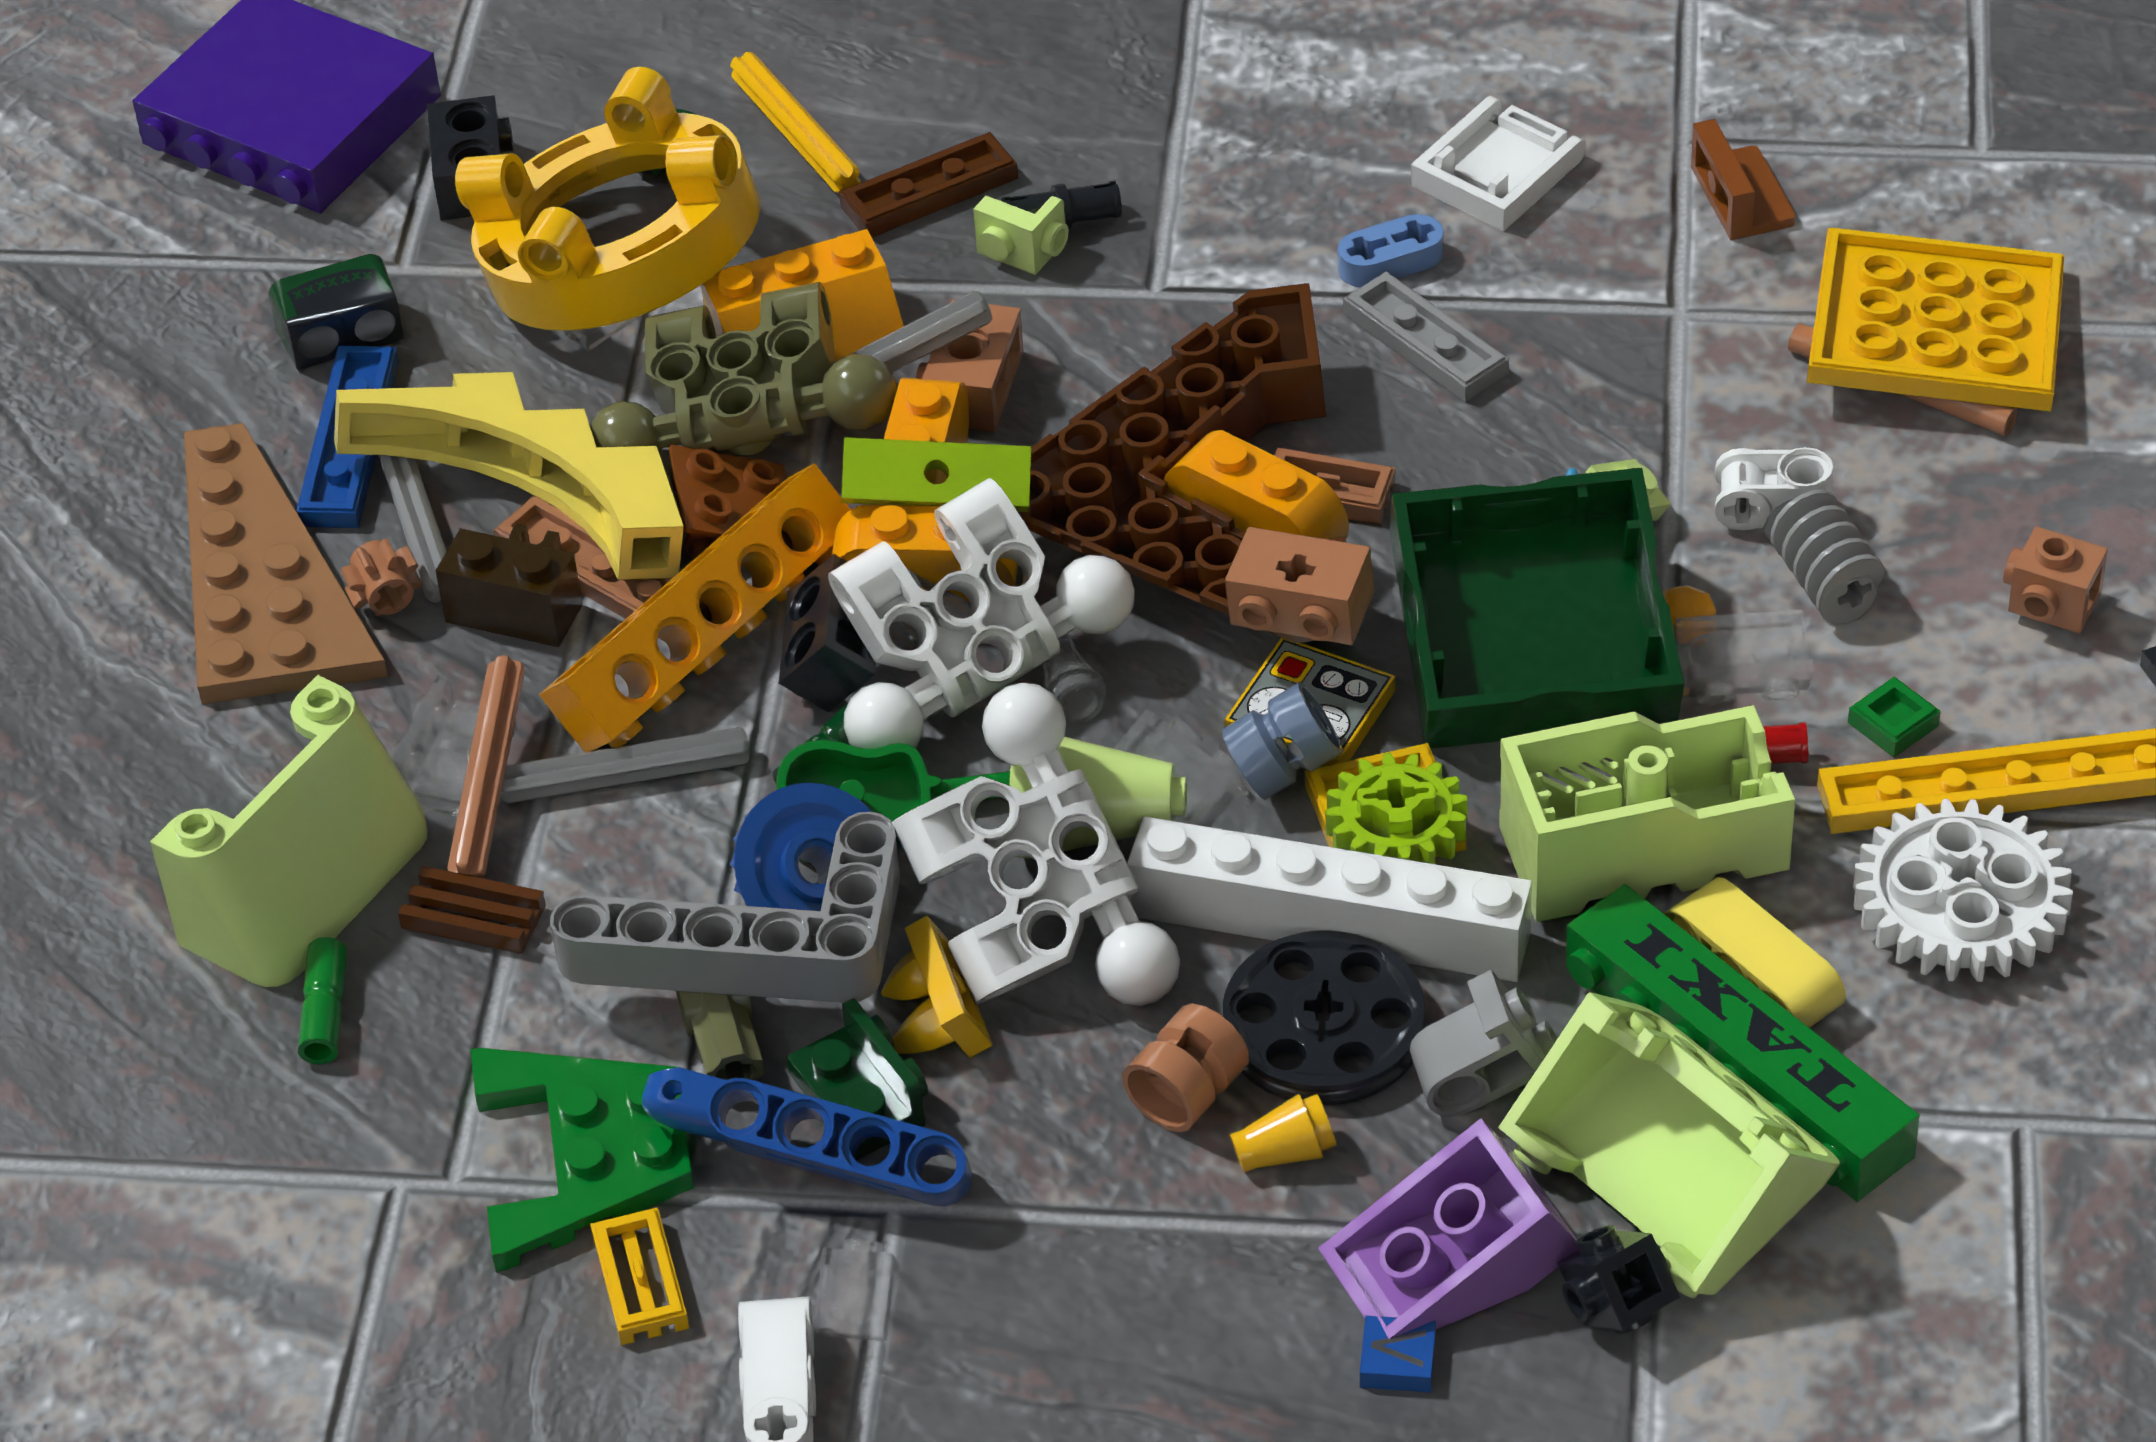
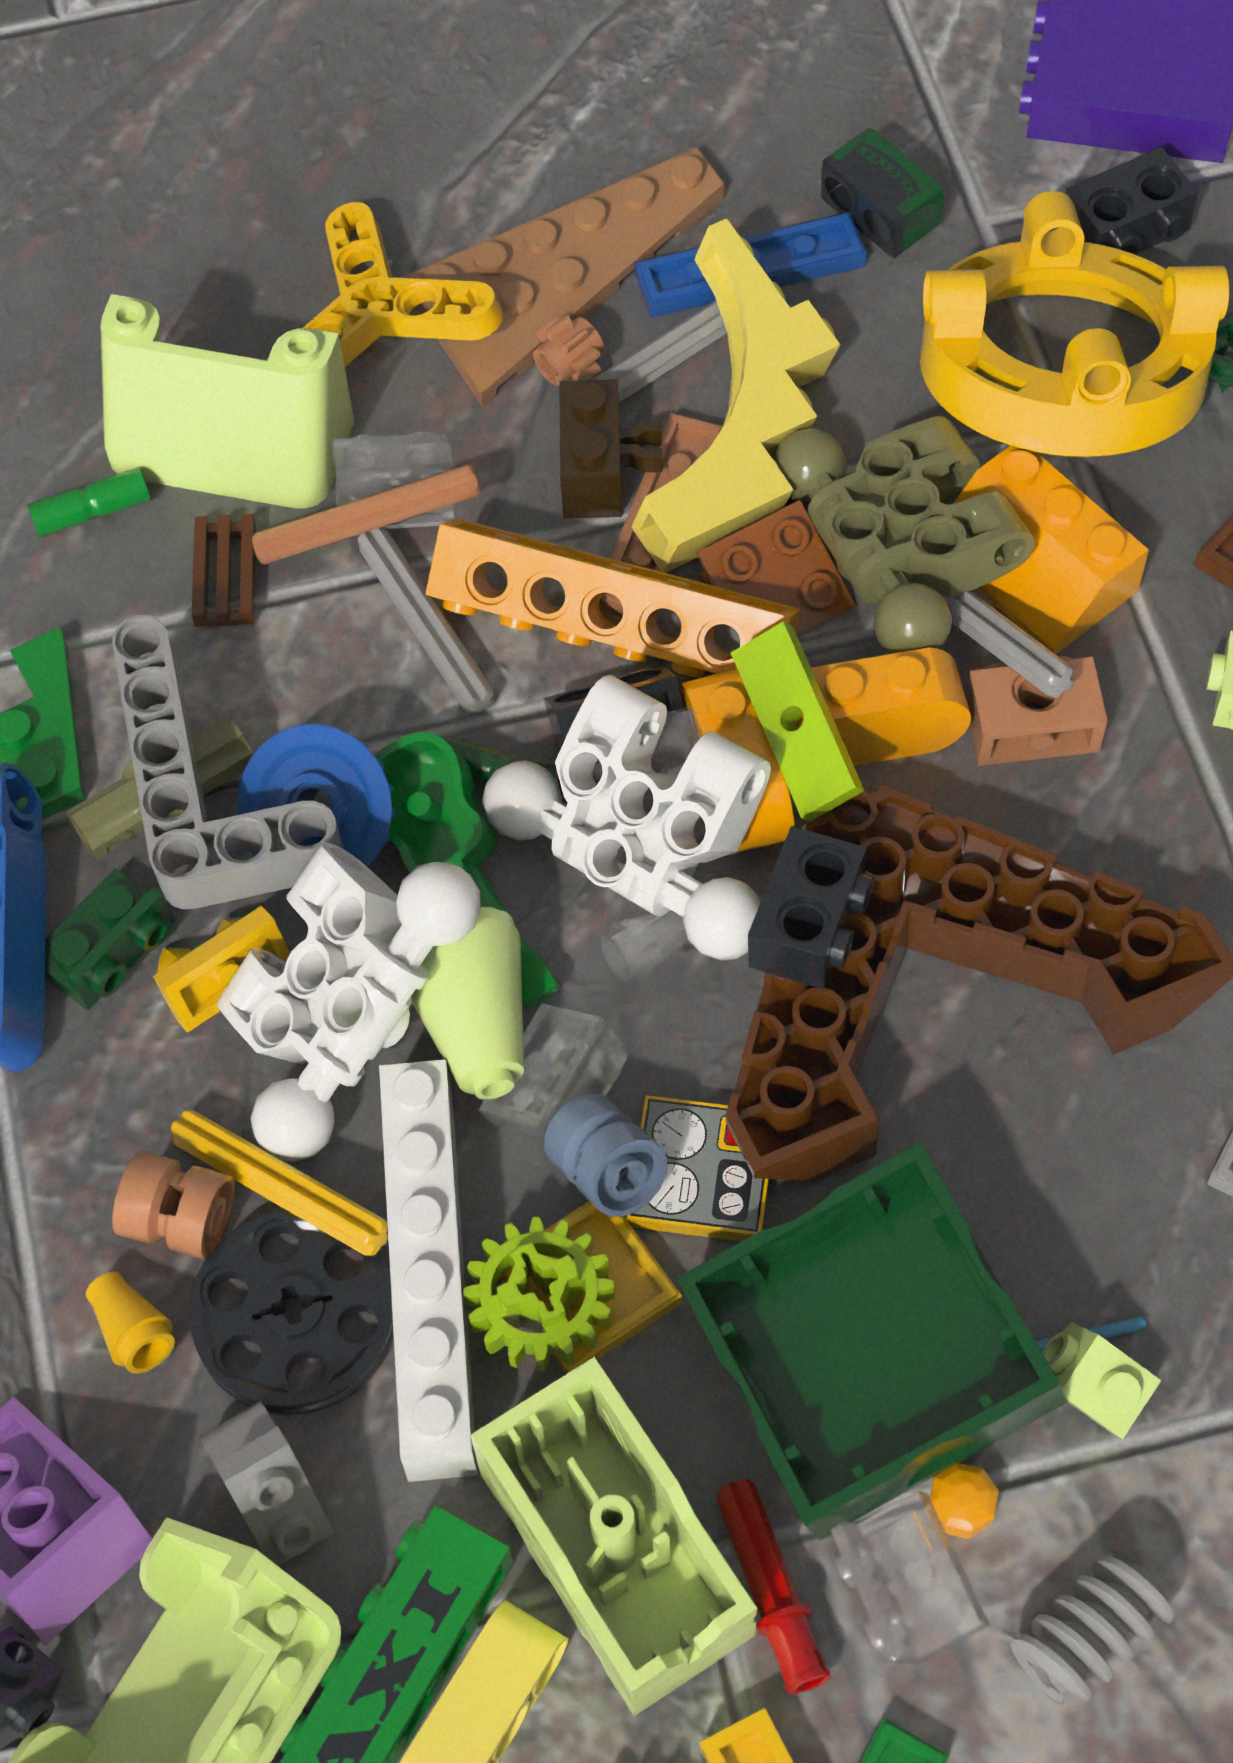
camera: 70 degrees right, 15 degrees up
(204, 699) = (381, 305): none -> yellow piece
(1127, 517) = (799, 906): none -> black brick
(1197, 984) = (280, 1182): none -> yellow axle
(1257, 488) = (923, 1027): light orange brick -> none
(1300, 585) = (770, 1061): nougat brick -> none
(1360, 502) = (1023, 1139): nougat tile -> none
(1769, 482) = (1178, 1529): white piece -> none

